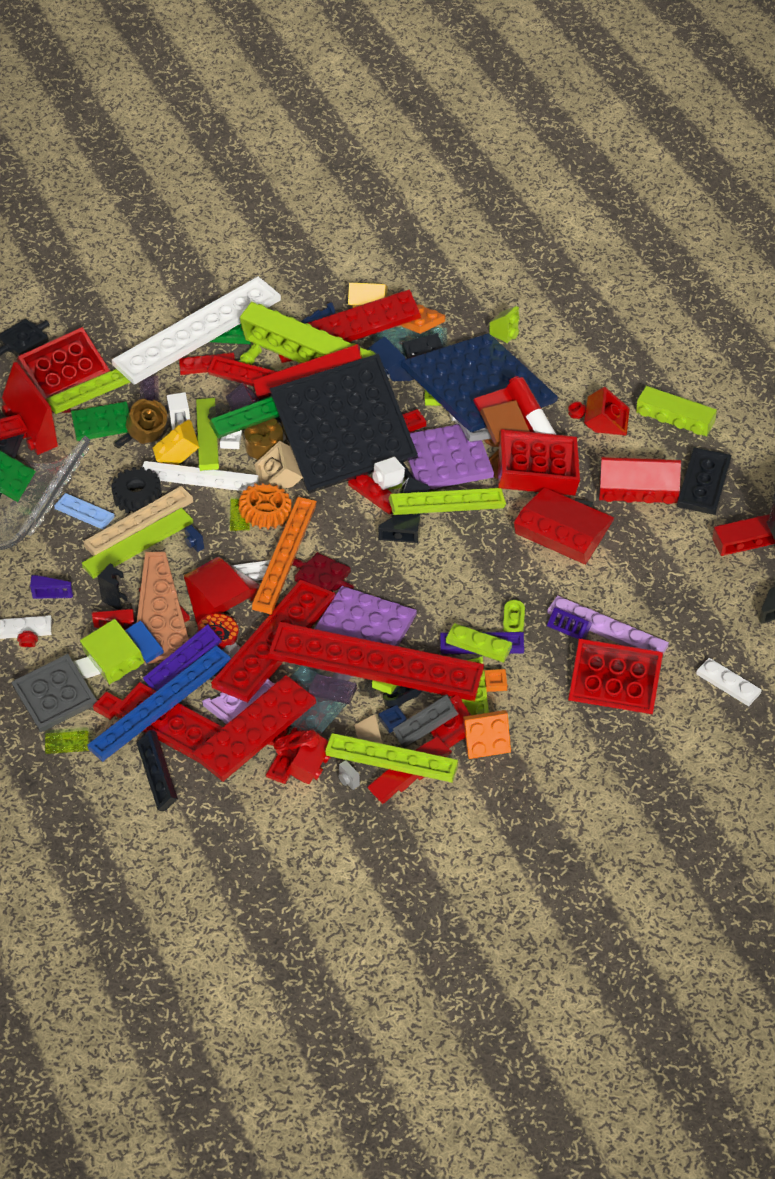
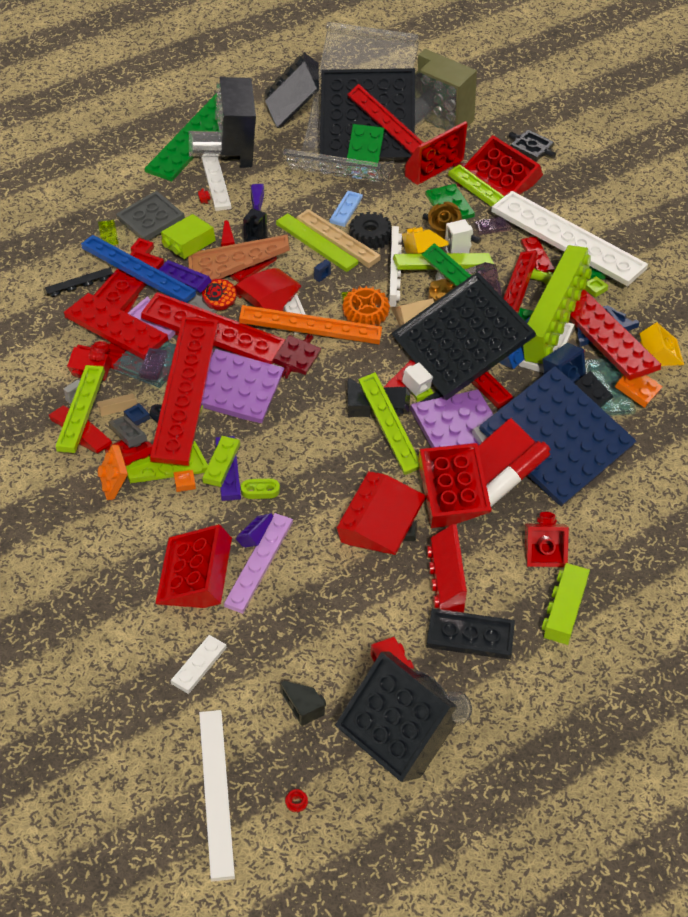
camera: 80 degrees right, 0 degrees up
(144, 641) = (201, 252): blue tile -> none
(218, 410) = (467, 262): clear smoke plant -> none
(323, 363) = (518, 301): red tile -> none
(503, 416) = (495, 449): dark orange tile -> none
(505, 324) = (648, 451): lime slope -> none

